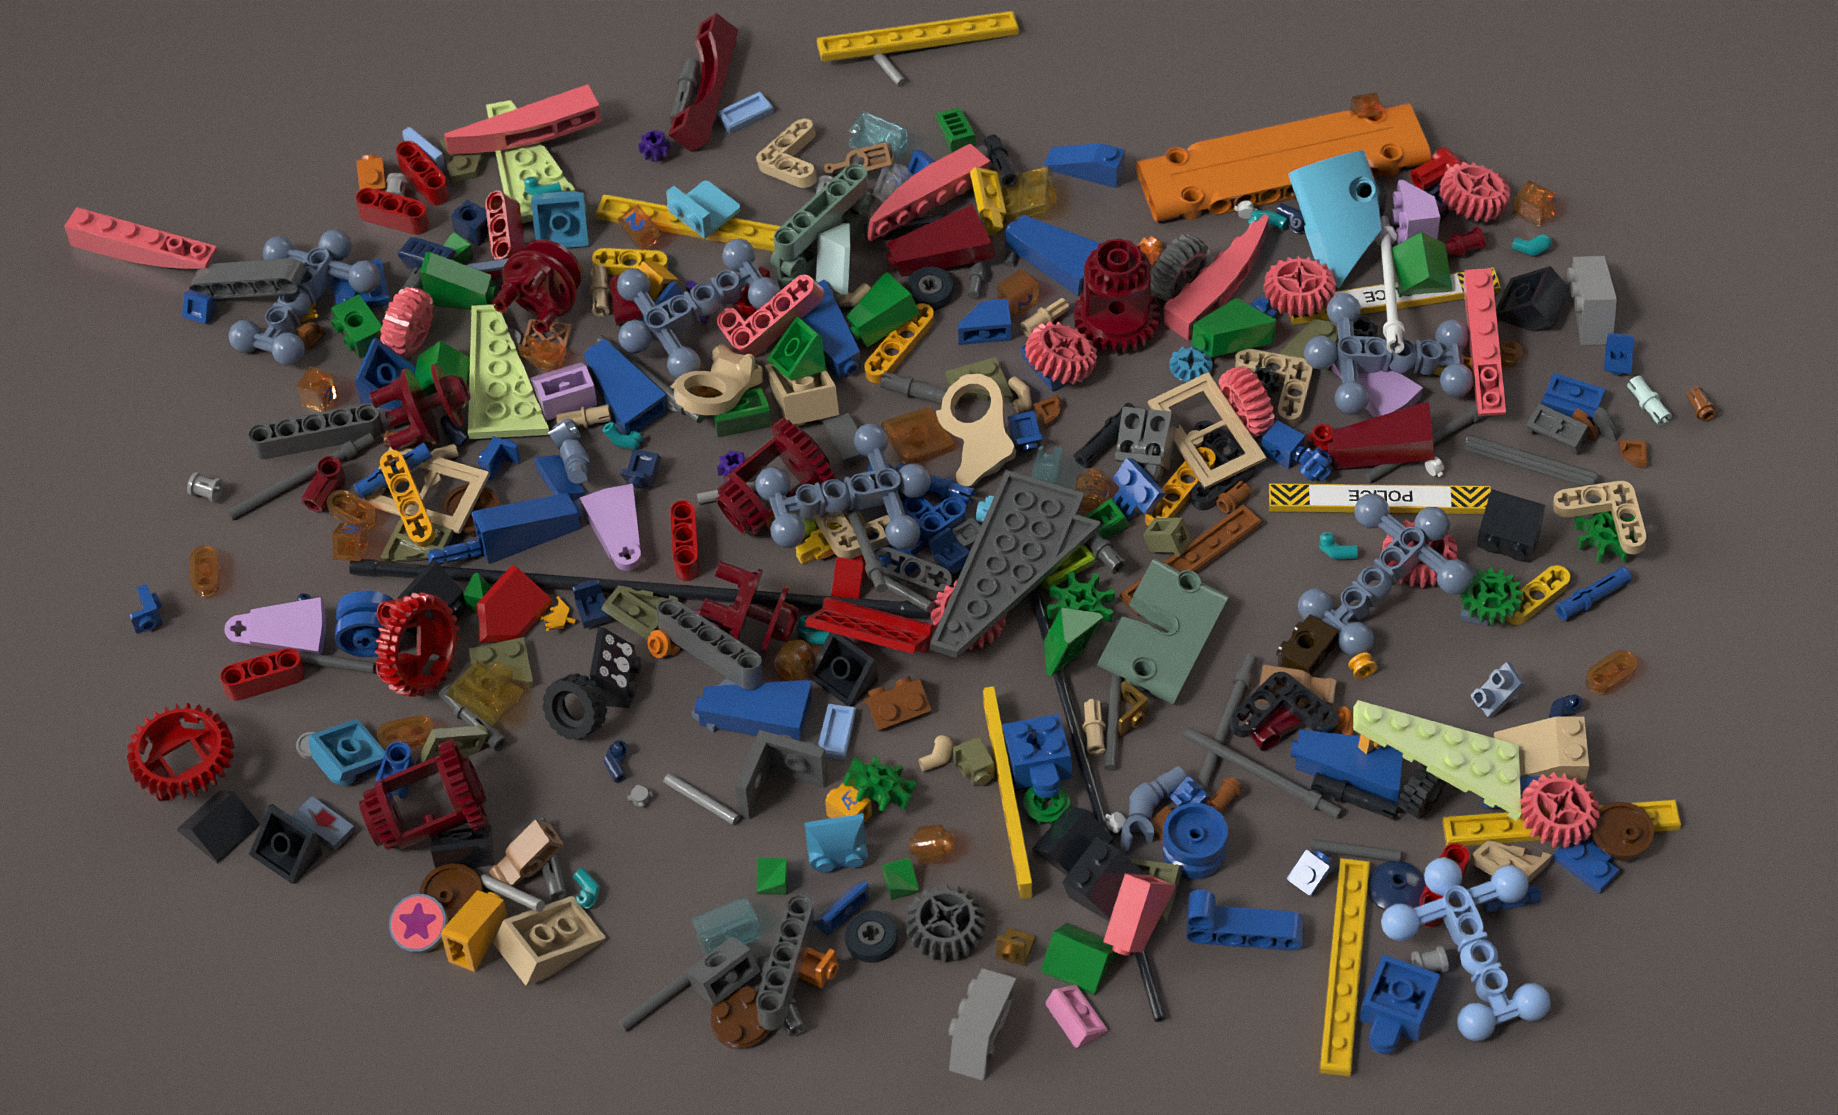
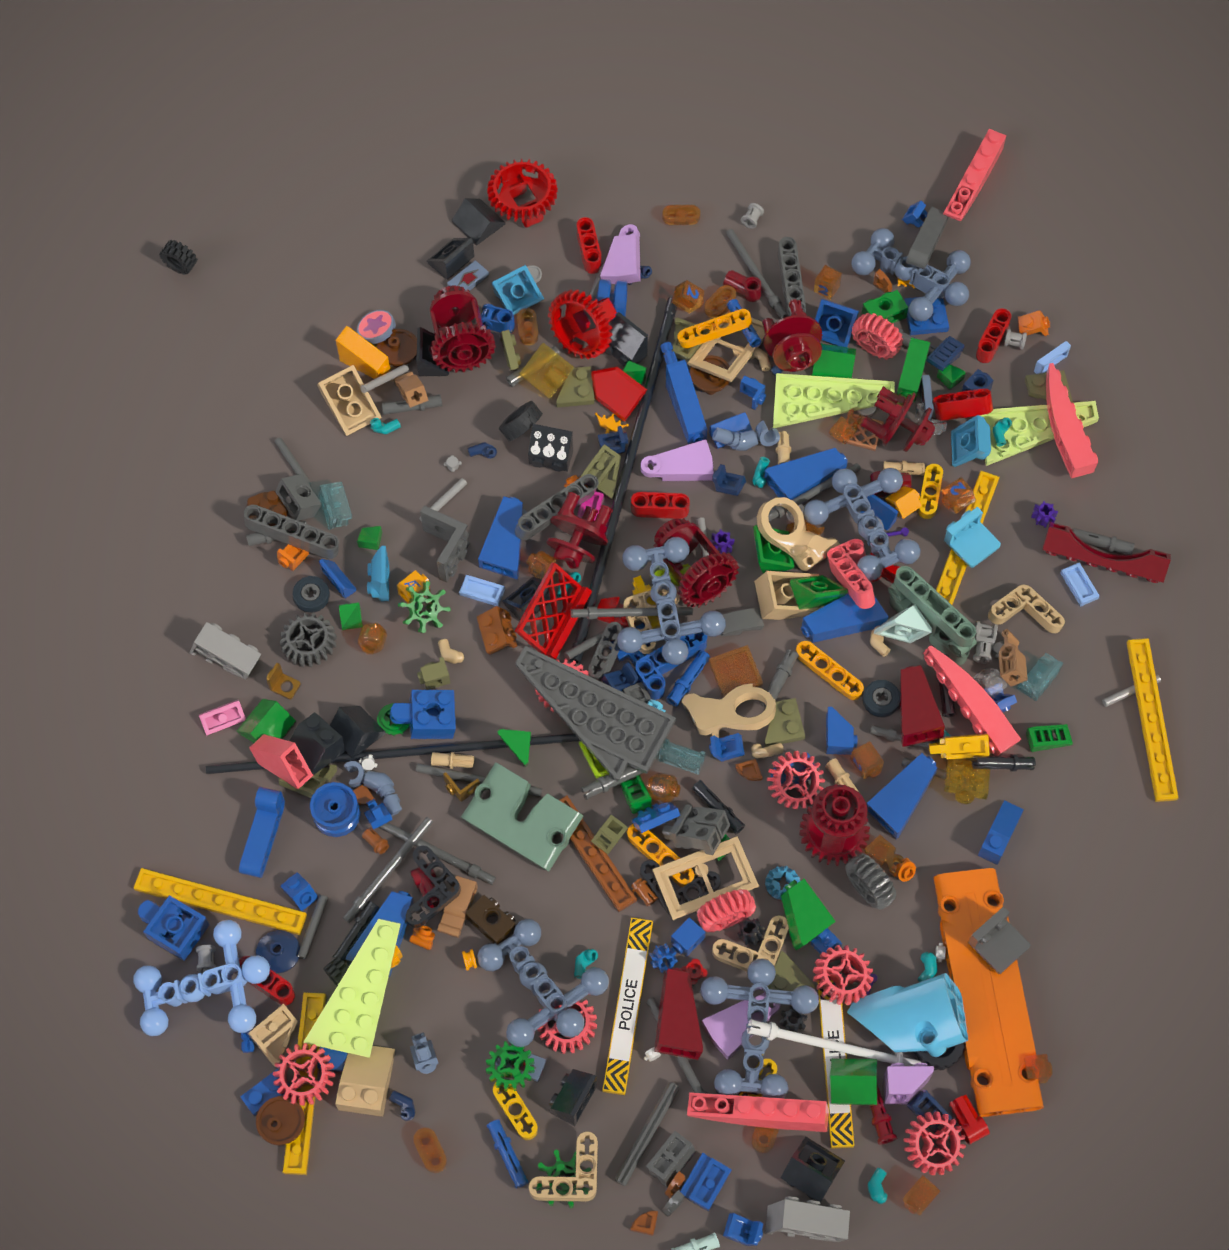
camera: 95 degrees right, 10 degrees up
(149, 616) = (653, 183): blue bracket -> none
(422, 173) = (1020, 356): red beam -> none
(564, 390) = (808, 433): lavender slope -> none
(881, 311) = (857, 657): green slope -> none
(1007, 793) = (401, 692): yellow tile -> none
(1081, 597) = (562, 772): green gear -> none
(1217, 282) = (862, 916): coral slope -> none
(1230, 142) = (999, 942): none -> dark grey bracket

